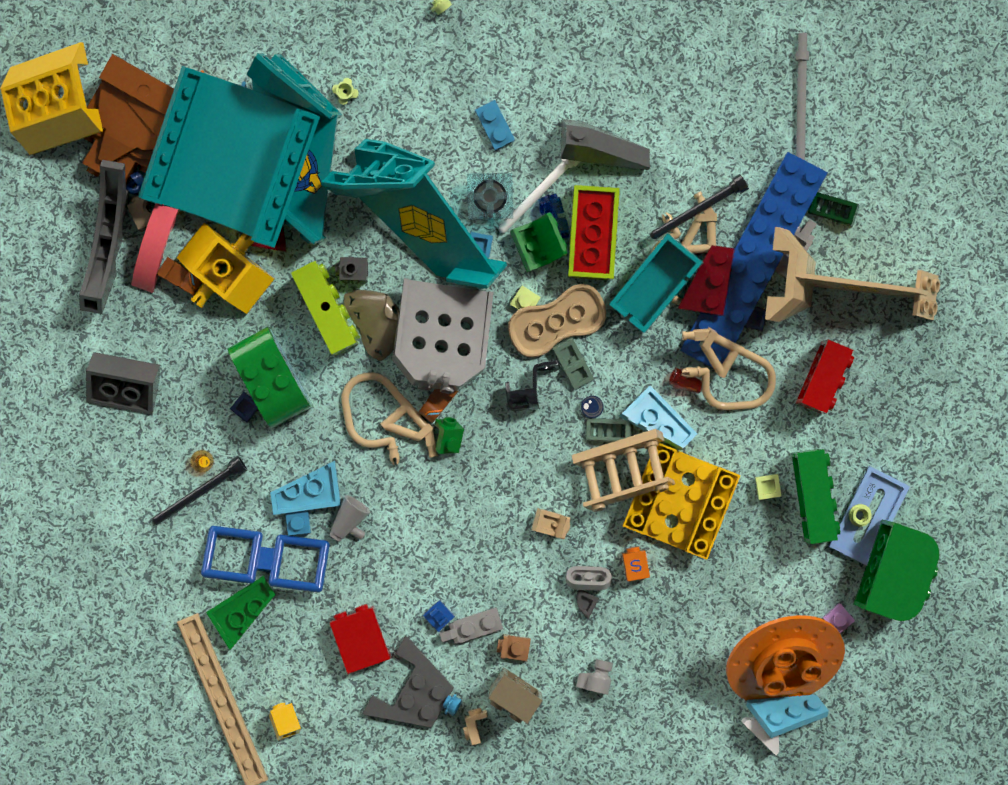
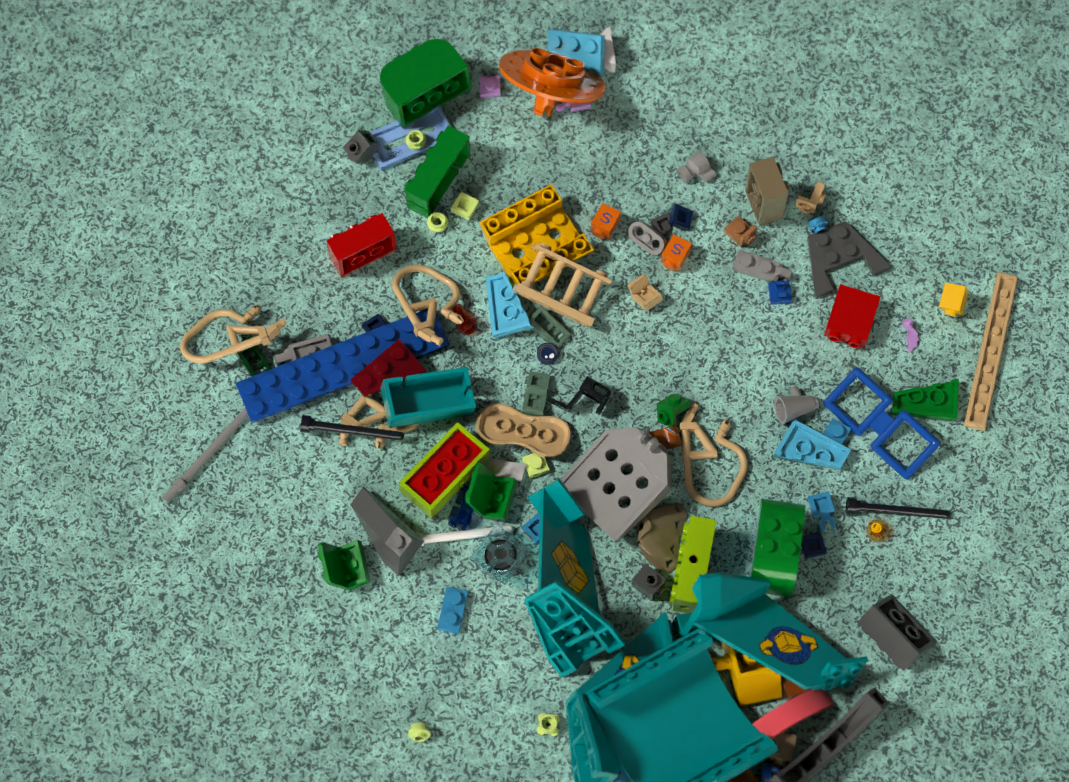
camera: 140 degrees left, 20 degrees down
(219, 289) = (754, 624): none -> teal piece
(261, 445) = (822, 507): none -> dark azure plate
(298, 662) = (912, 334): none -> lavender piece
(545, 276) = (507, 469): none -> flat silver sticker
(553, 581) = (676, 253): none -> orange brick
(575, 620) = (680, 217): none -> dark blue tile
(610, 89) = (344, 565): none -> green bracket
(787, 454) = (434, 217): none -> yellowish green plate
(802, 279) = (317, 312): tan piece -> none
(837, 231) = (264, 335): none -> tan piece
(900, 470) = (361, 146): none -> dark grey brick

